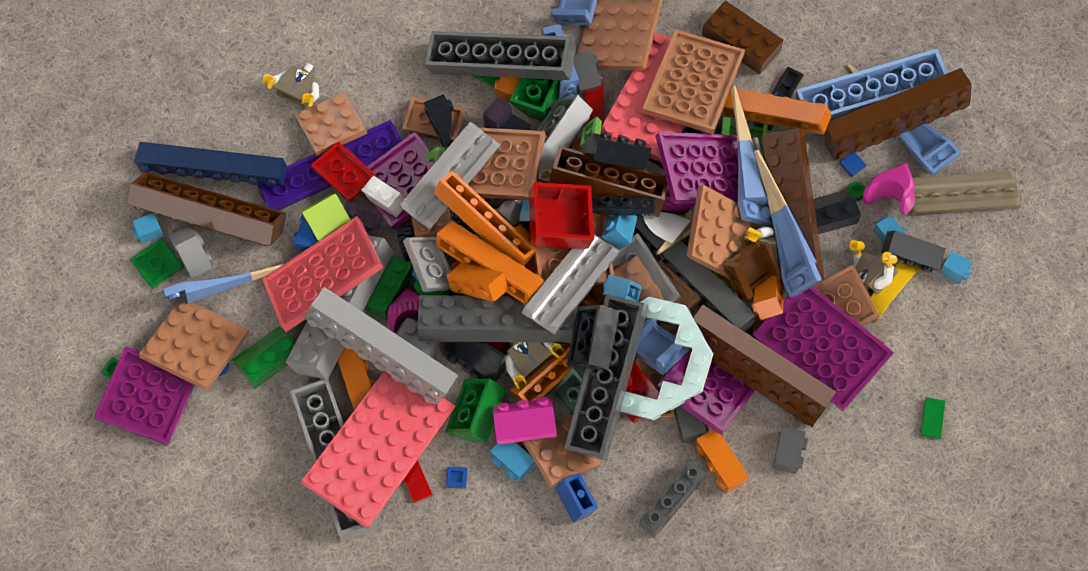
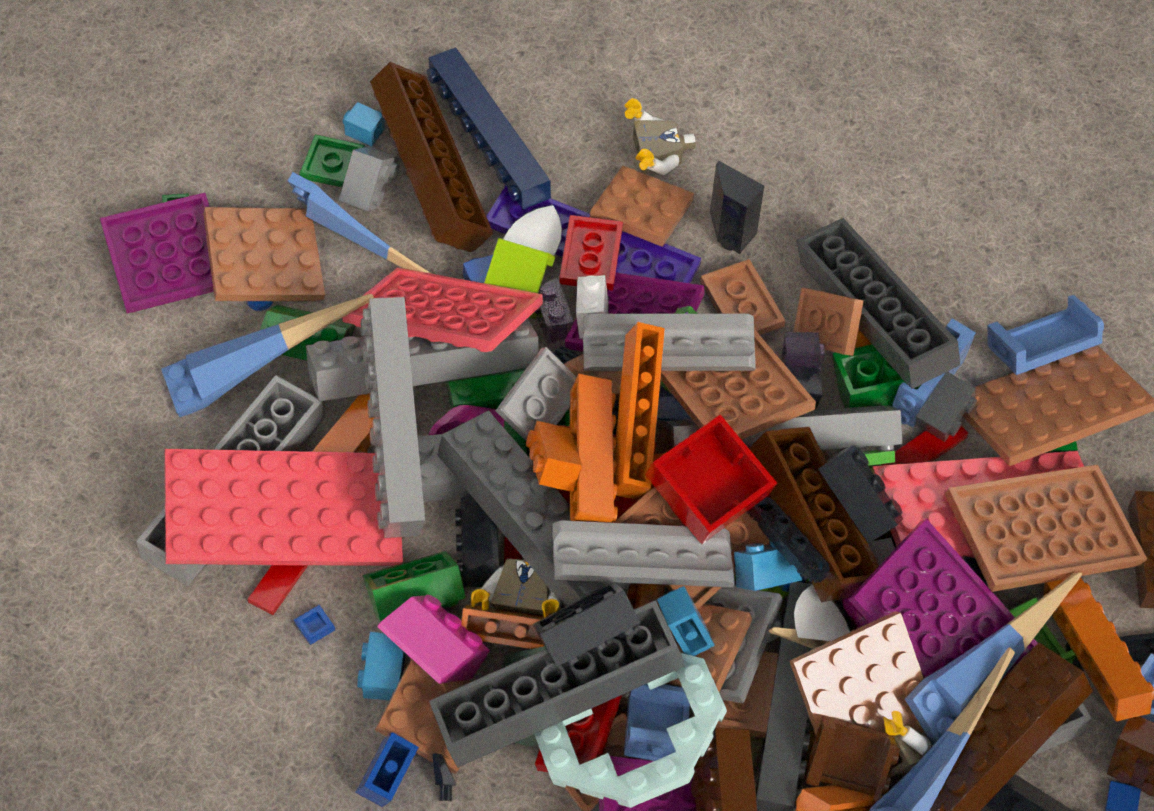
camera: 50 degrees right, 10 degrees down
(253, 424) = (217, 369): none -> medium blue plate
(303, 189) = (537, 230): none -> white sticker
(379, 79) = (735, 207): none -> black slope
(440, 116) = (750, 294): black slope -> none
(488, 85) = (832, 316): none -> nougat plate
(601, 473) = (443, 777): none -> black bar

